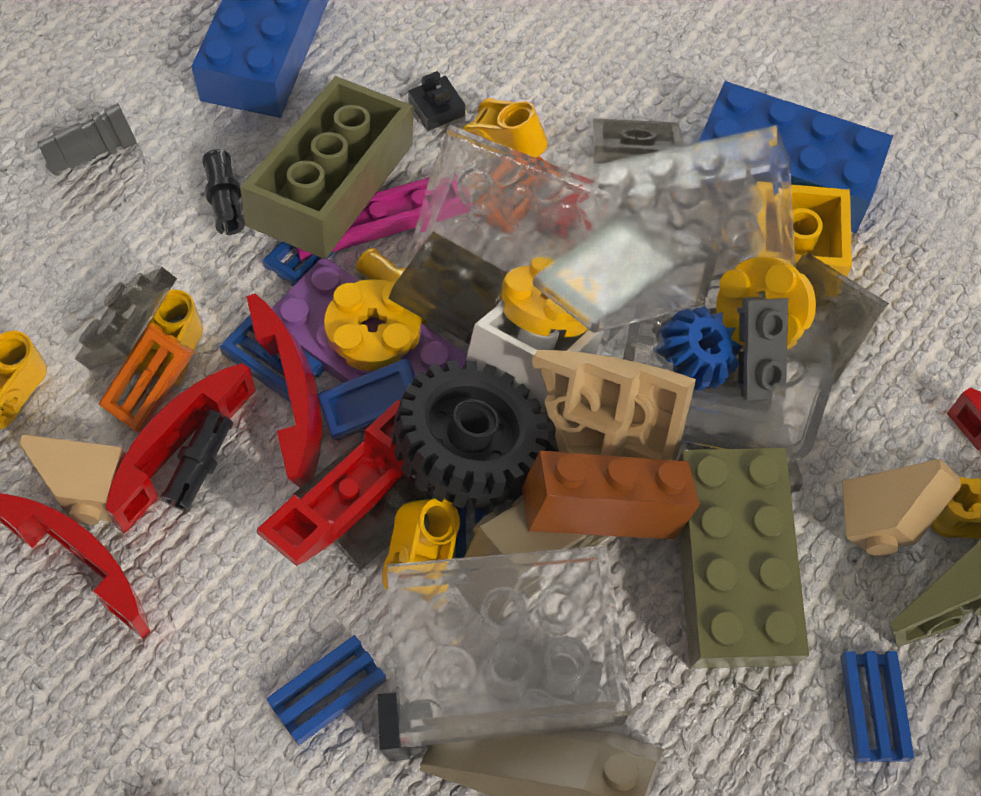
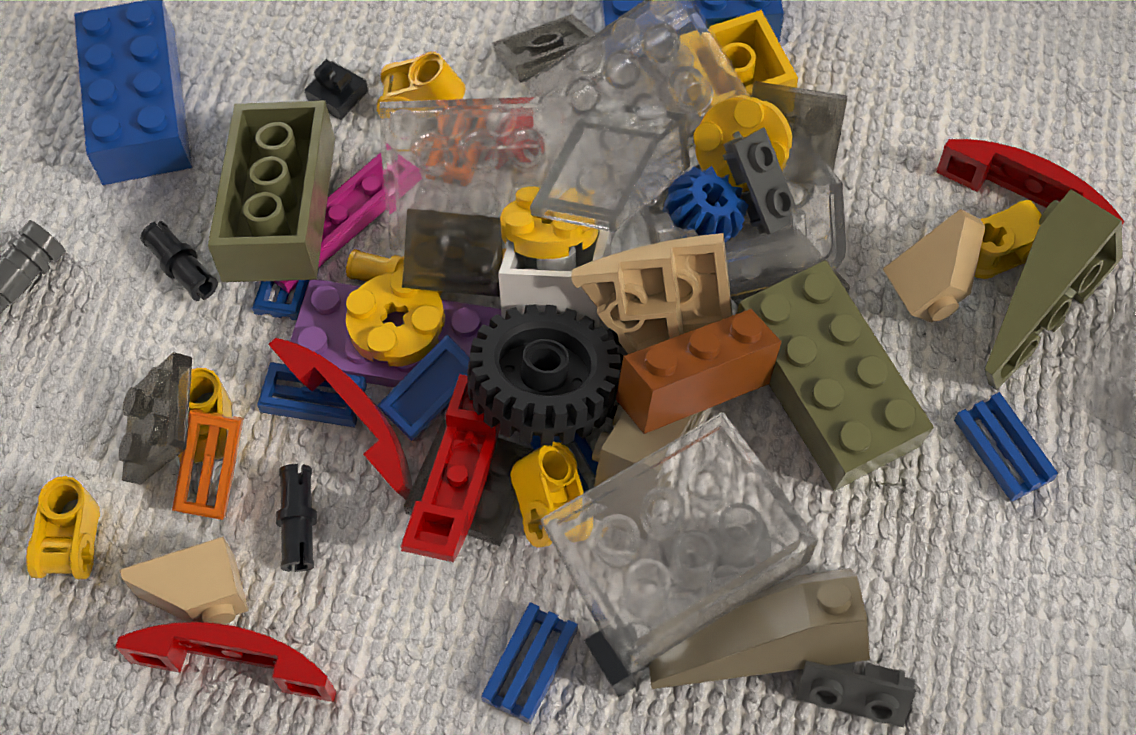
camera: 20 degrees left, 0 degrees up
(165, 433) = (250, 565): red slope -> none

